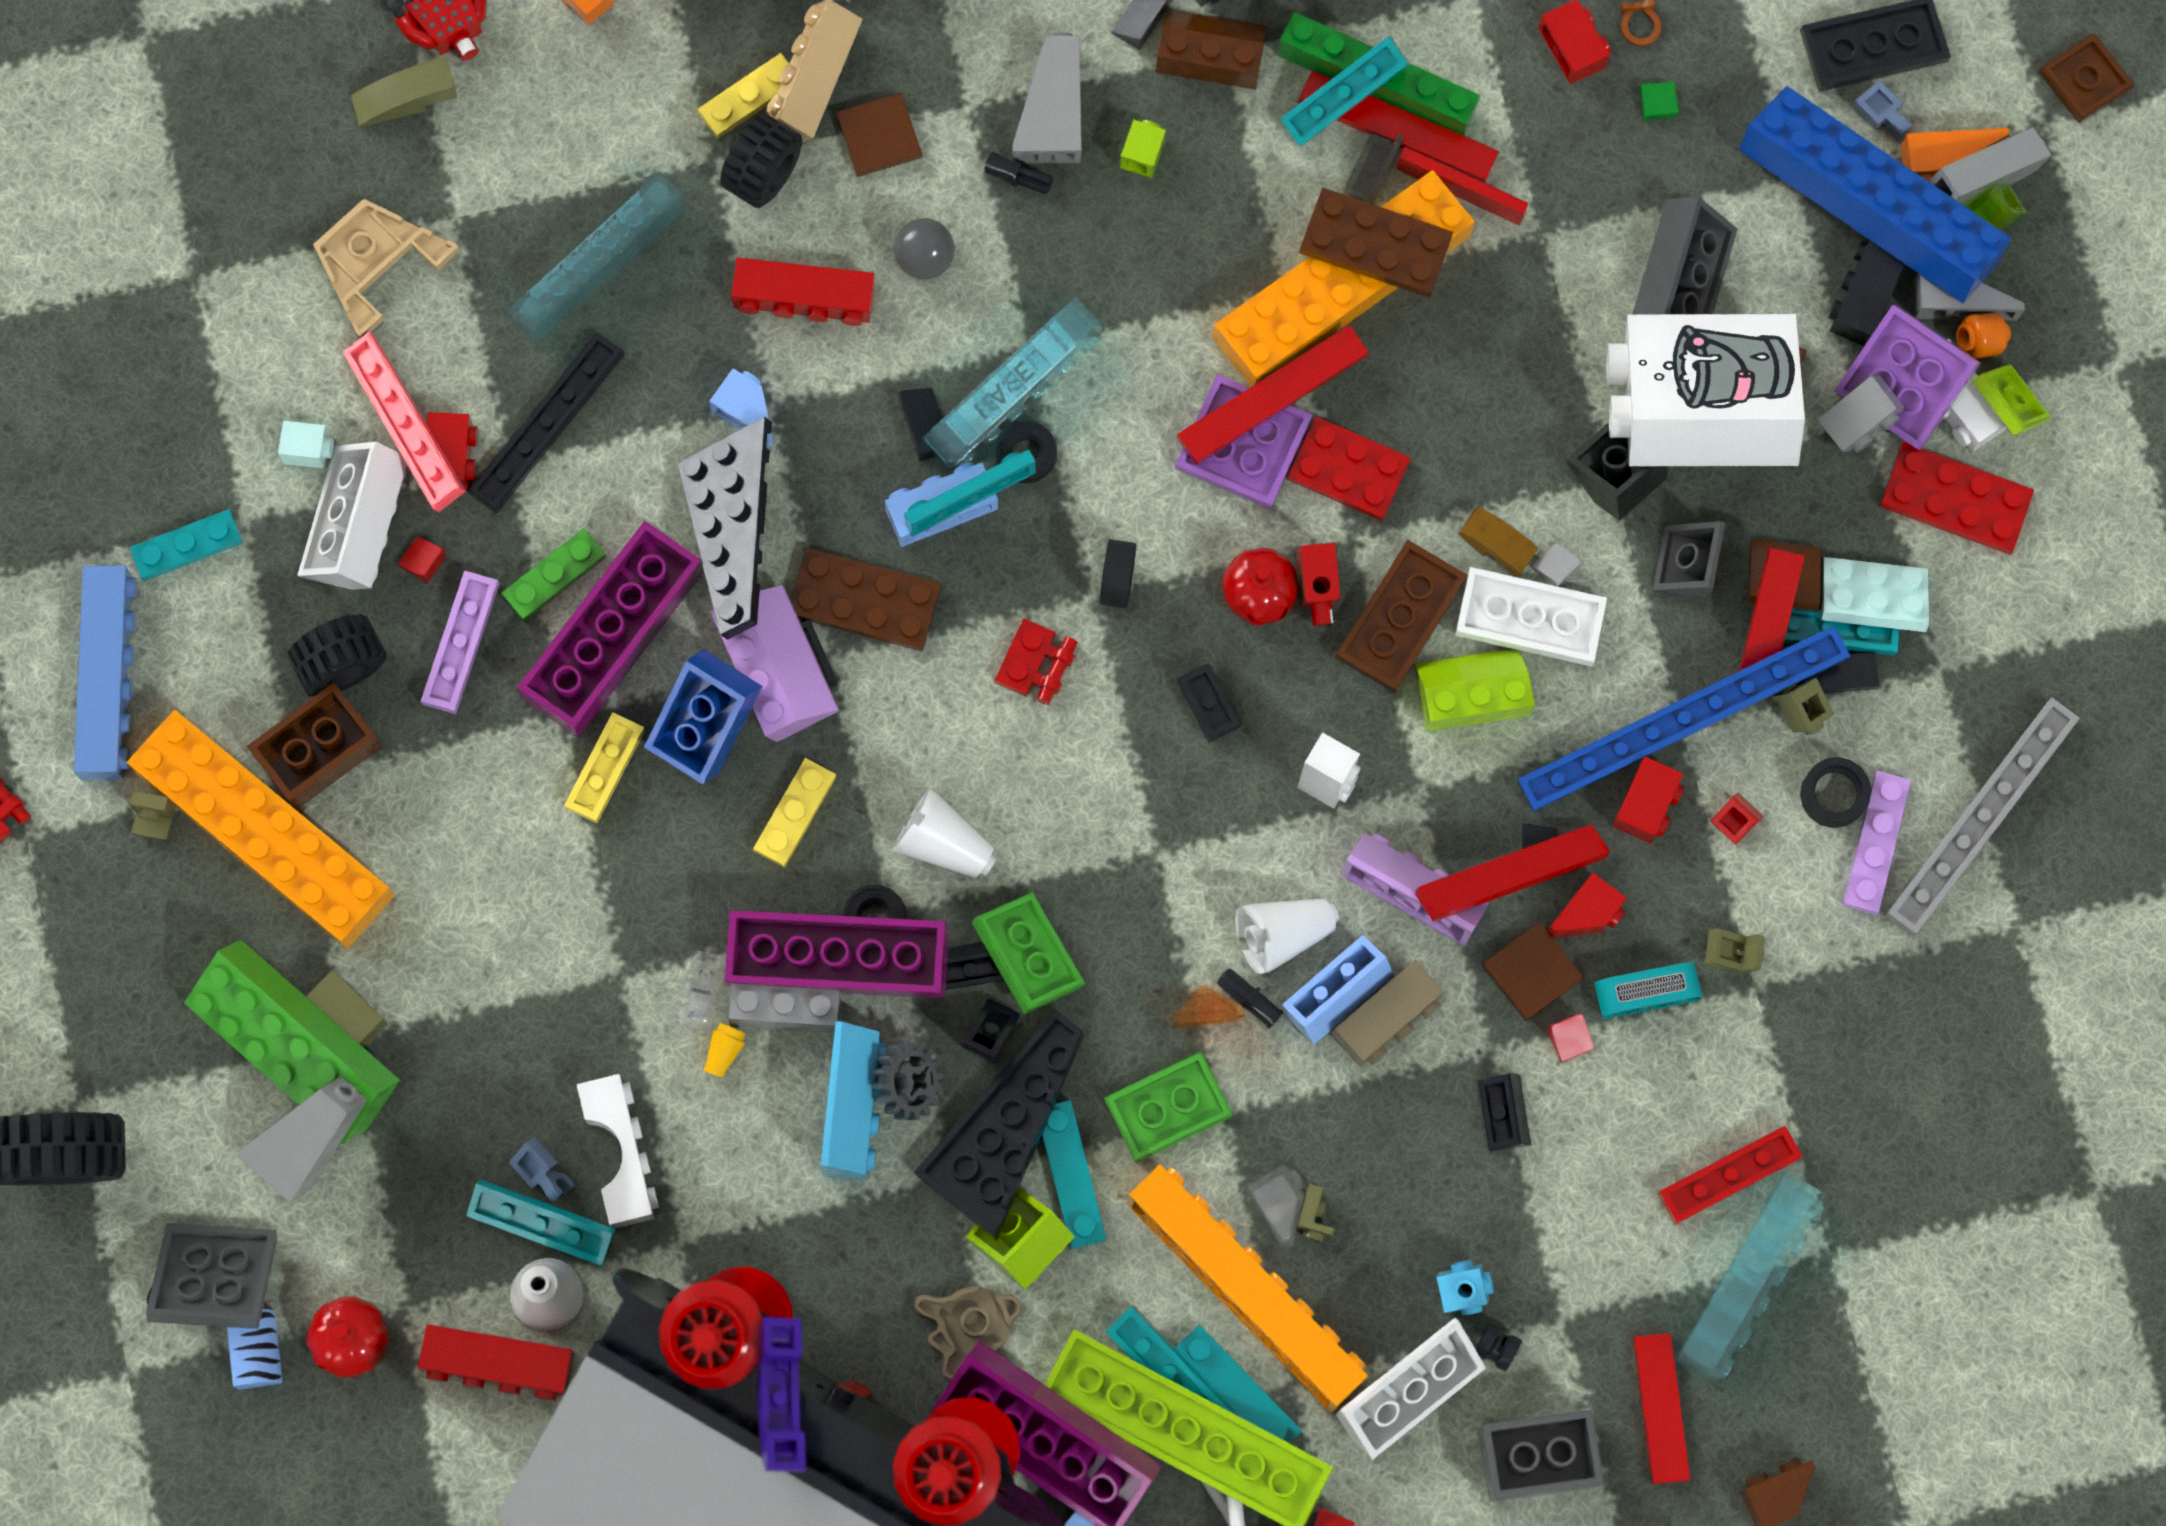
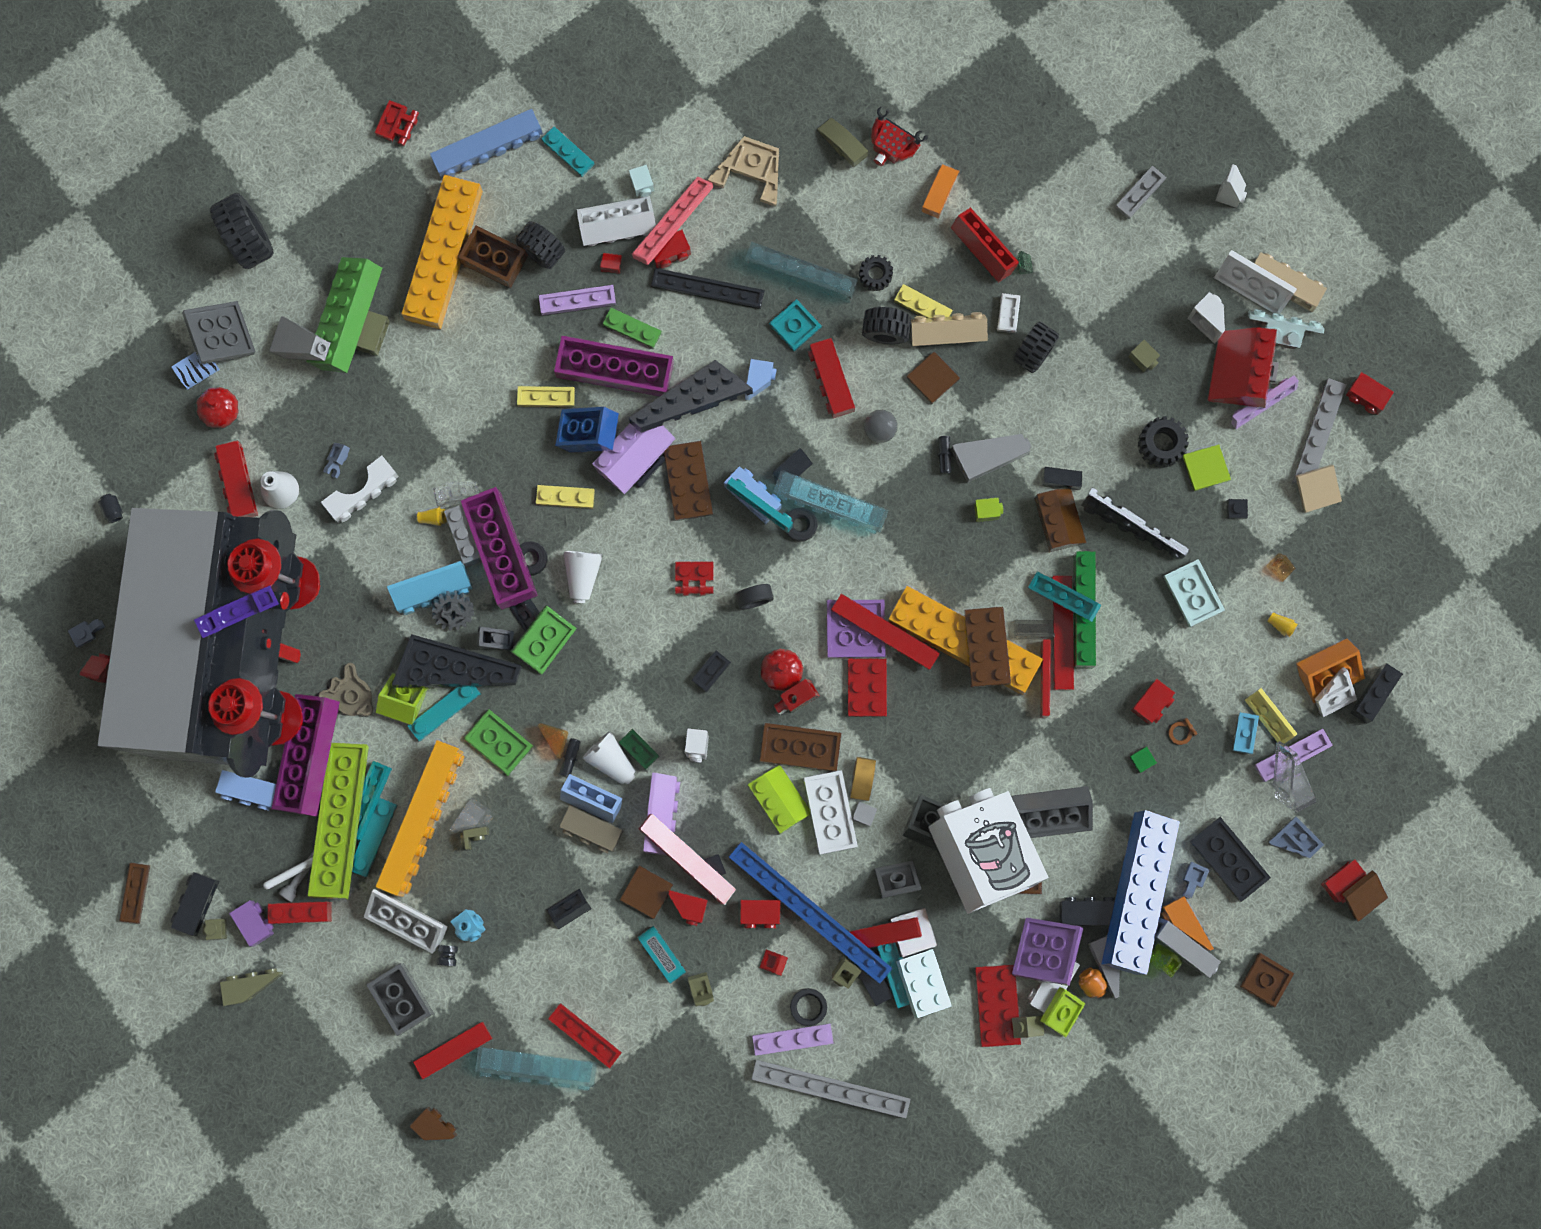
camera: 70 degrees right, 5 degrees up
(152, 816) = (426, 200): olive bracket -> none
(540, 1222) = (311, 470): teal plate -> none
(651, 124) = (876, 262): none -> black tyre
(681, 310) = (795, 325): none -> teal tile
(1291, 874) = (639, 749): none -> dark green panel
(1570, 1037) = (620, 926): slope -> none
(1862, 414) = (1017, 936): light grey brick -> none
(2012, 463) = (1027, 1026): none -> olive brick

